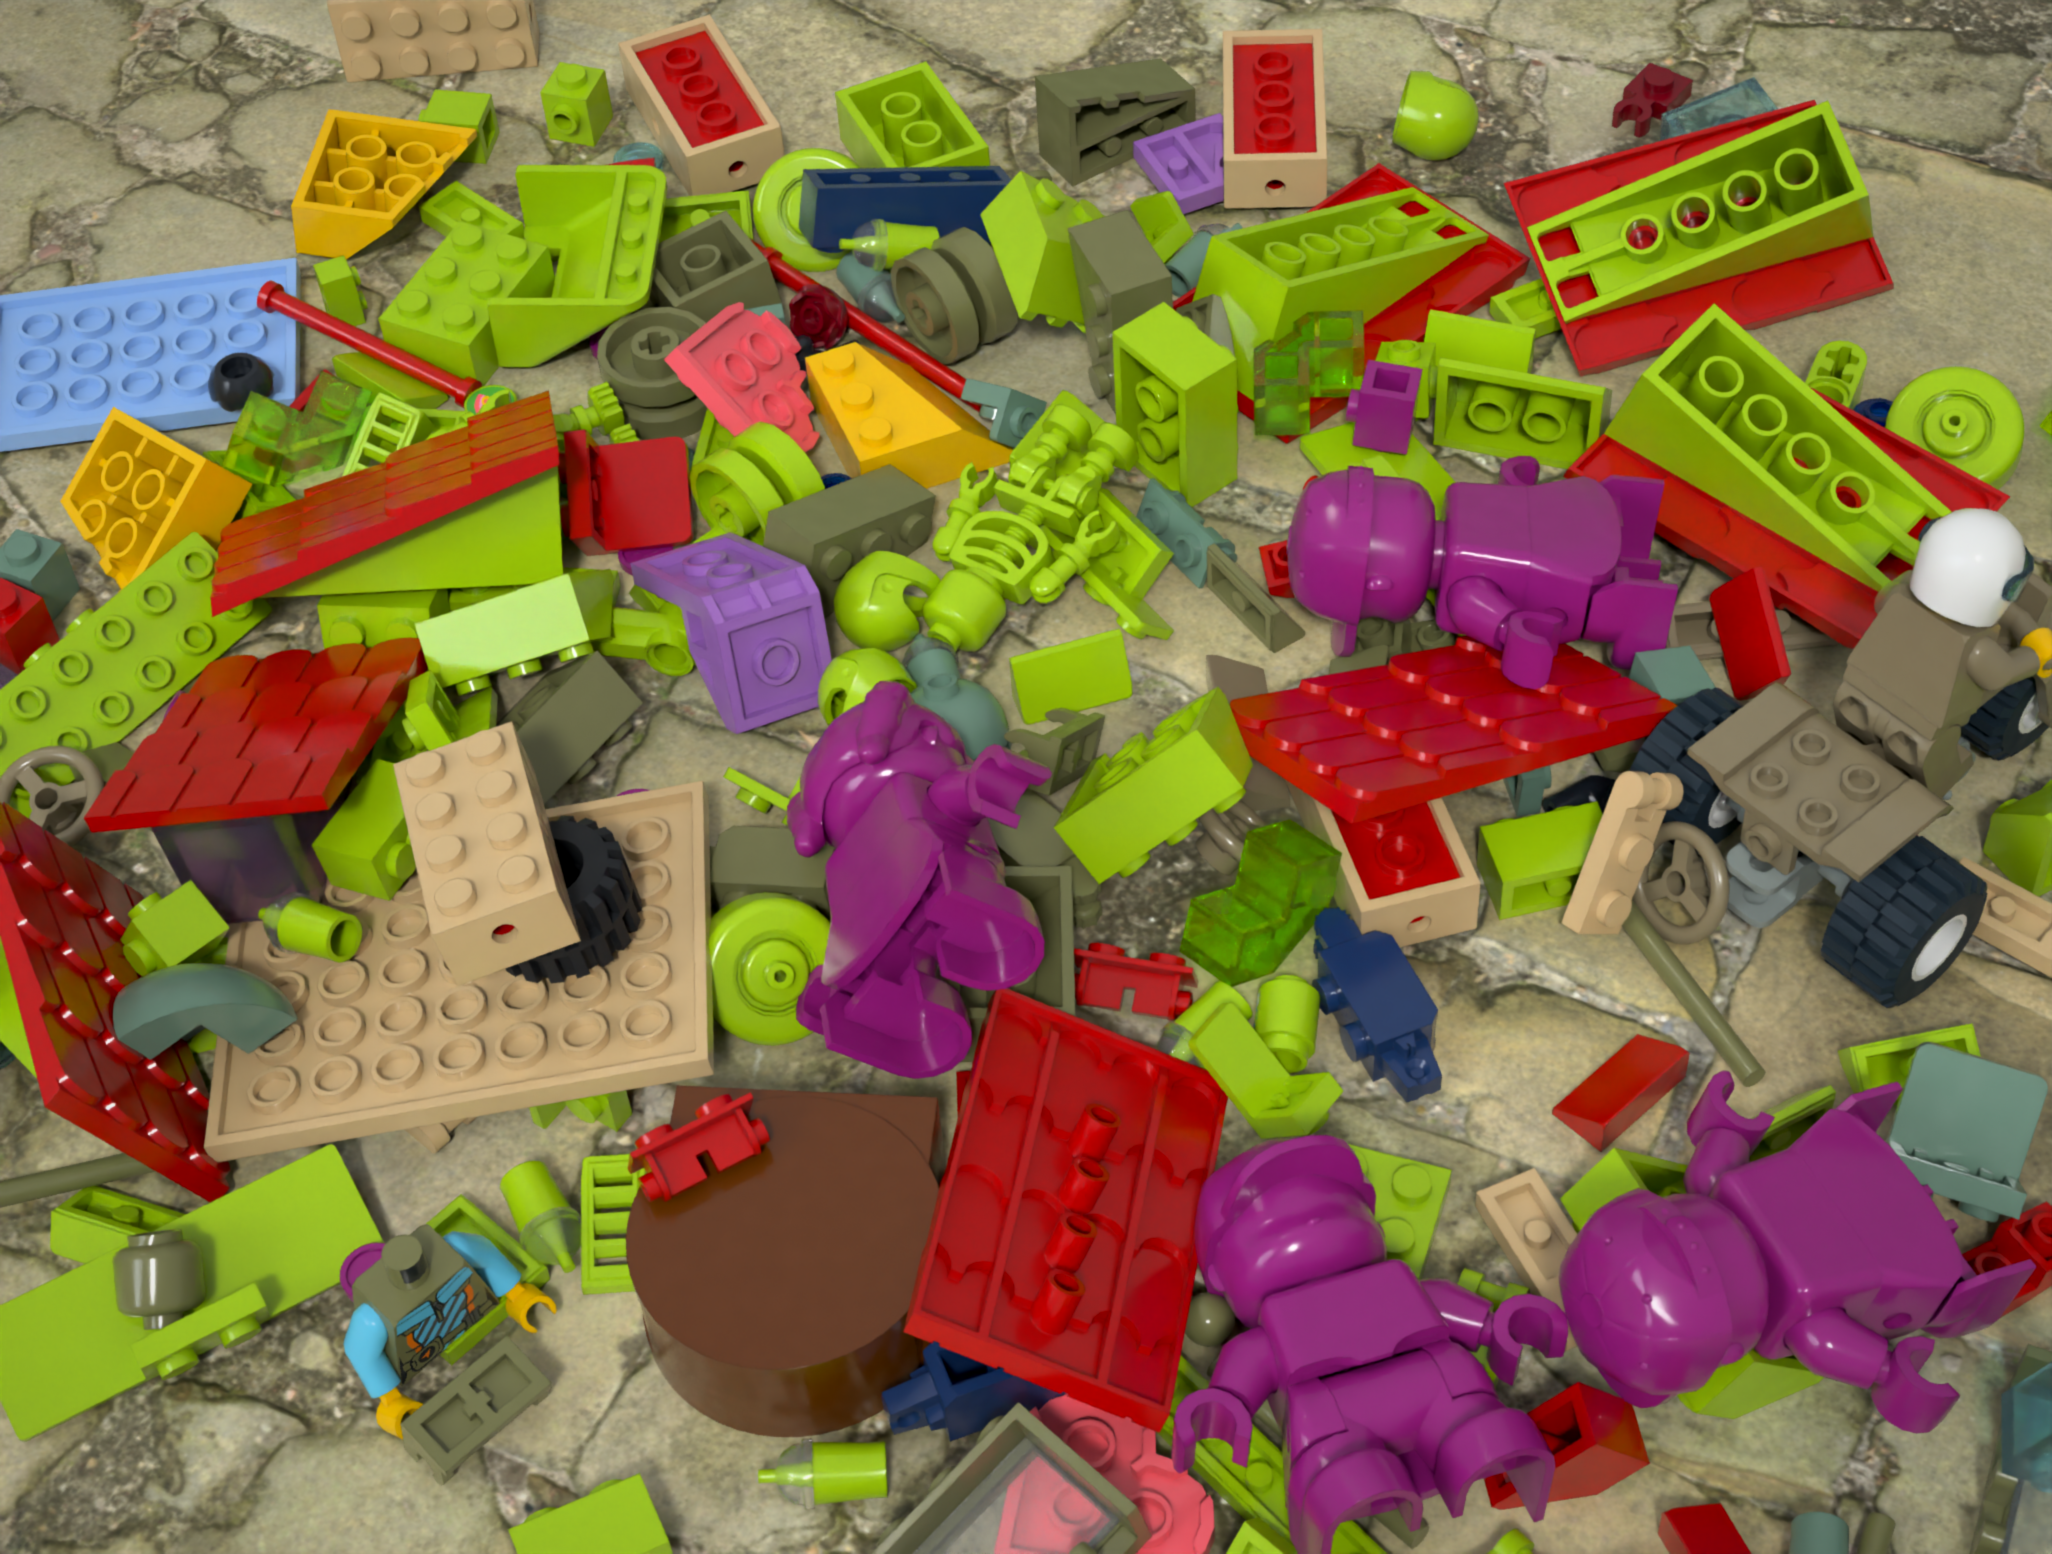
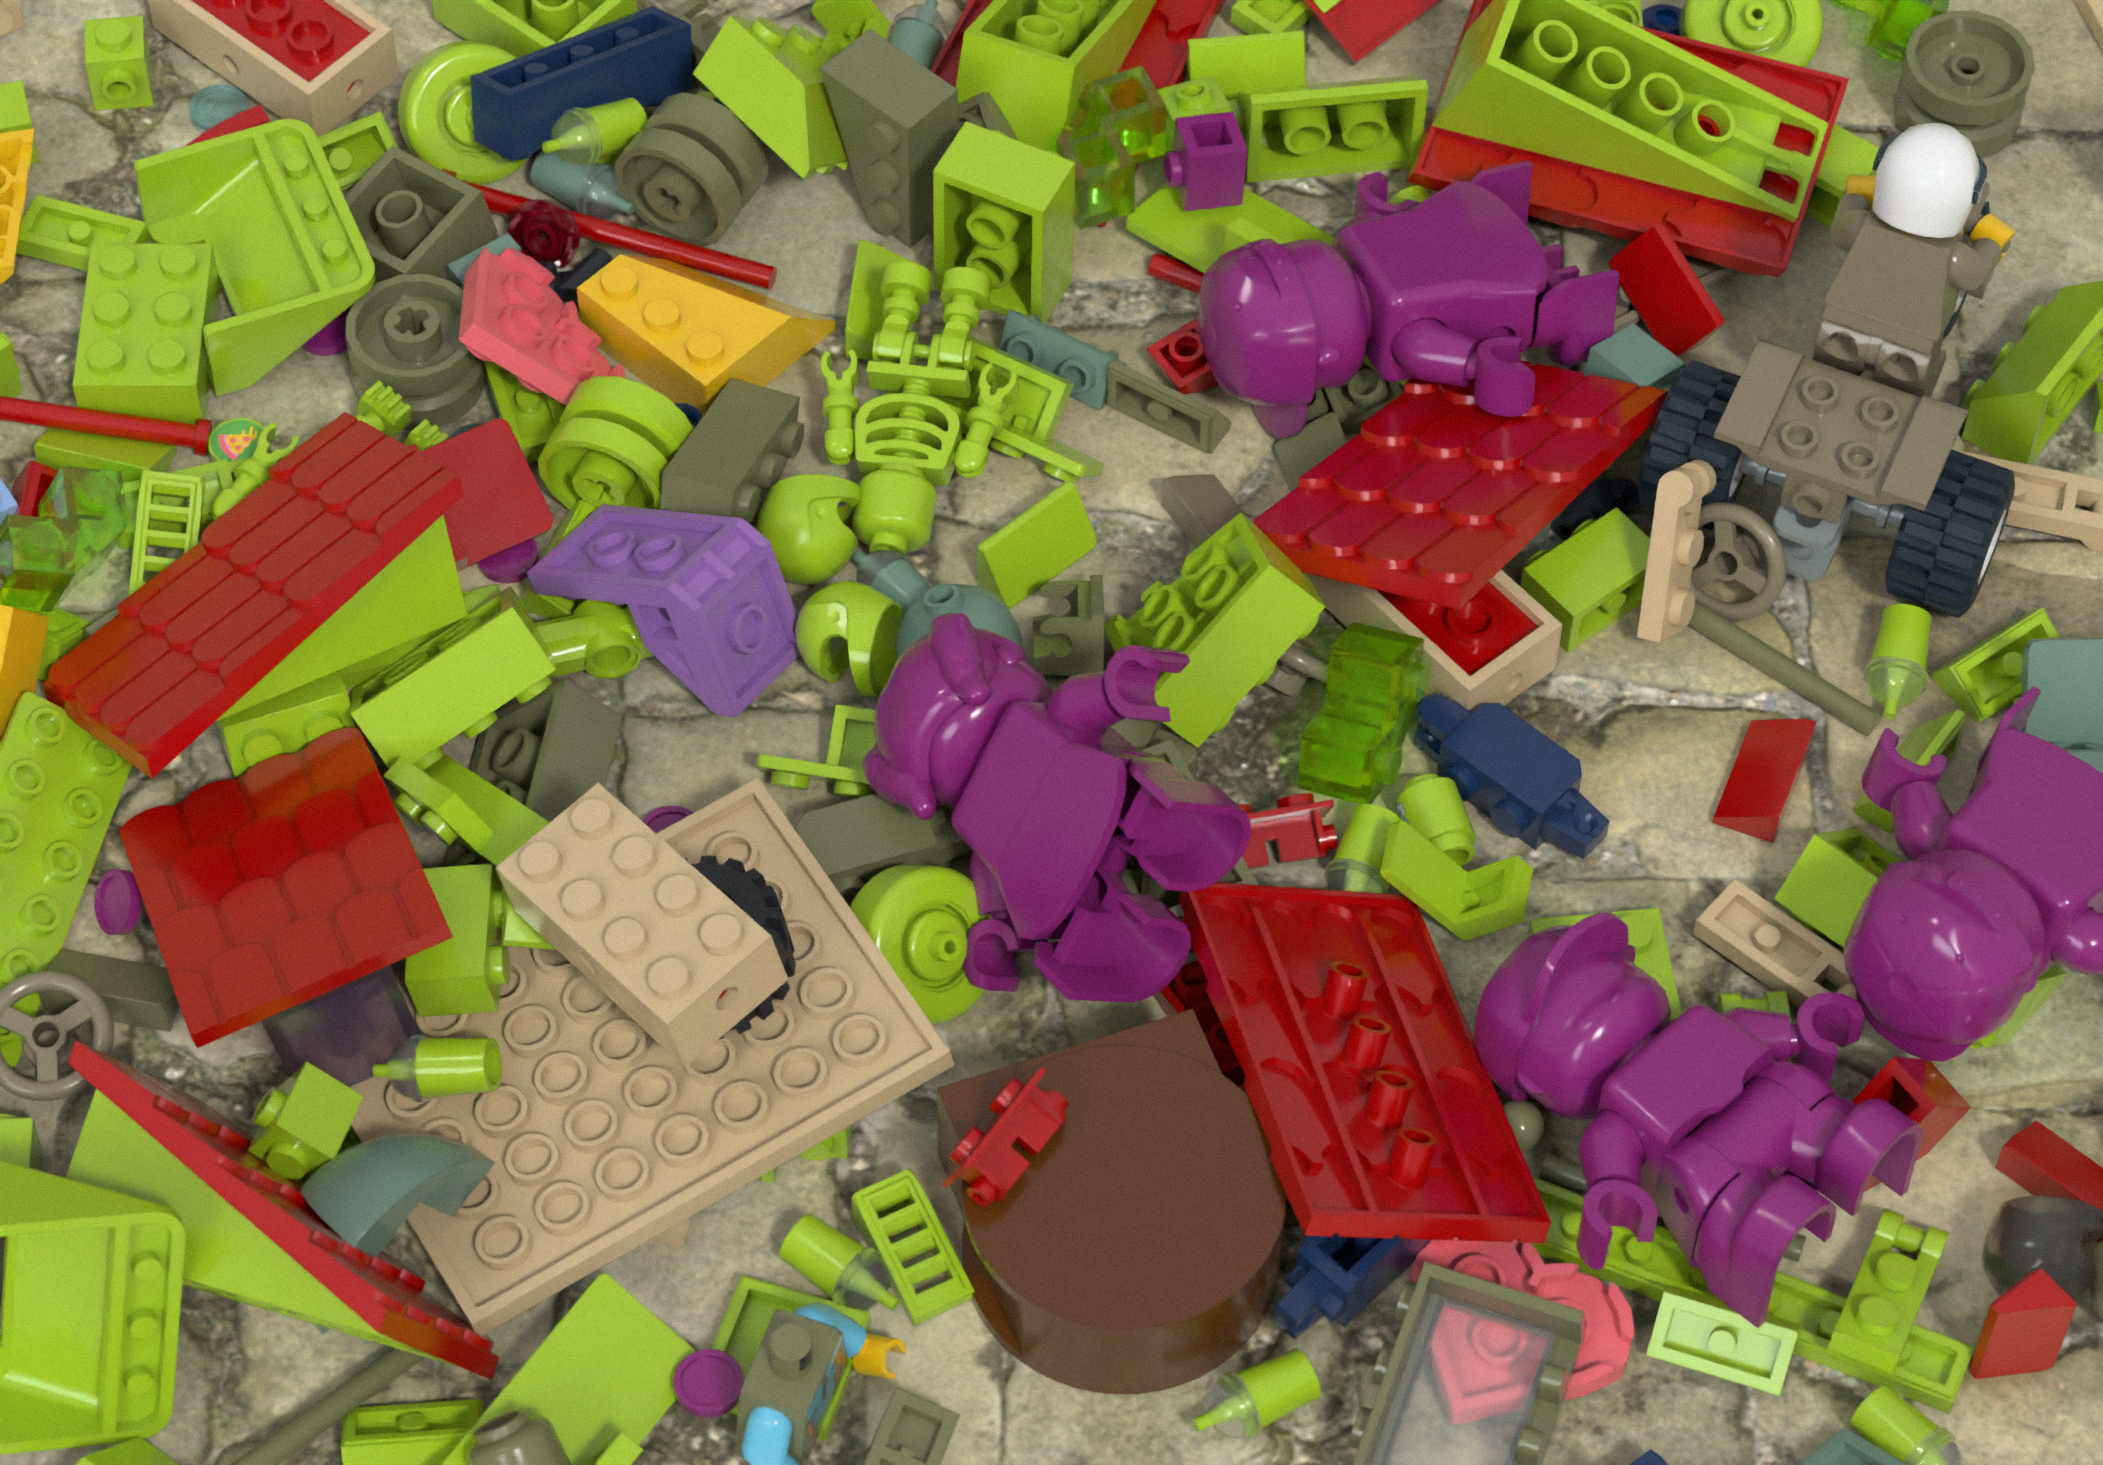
camera: 30 degrees left, 5 degrees up
(1009, 409) = (821, 277): sand green bracket -> none
(1808, 1024) = (1899, 658): none -> piece

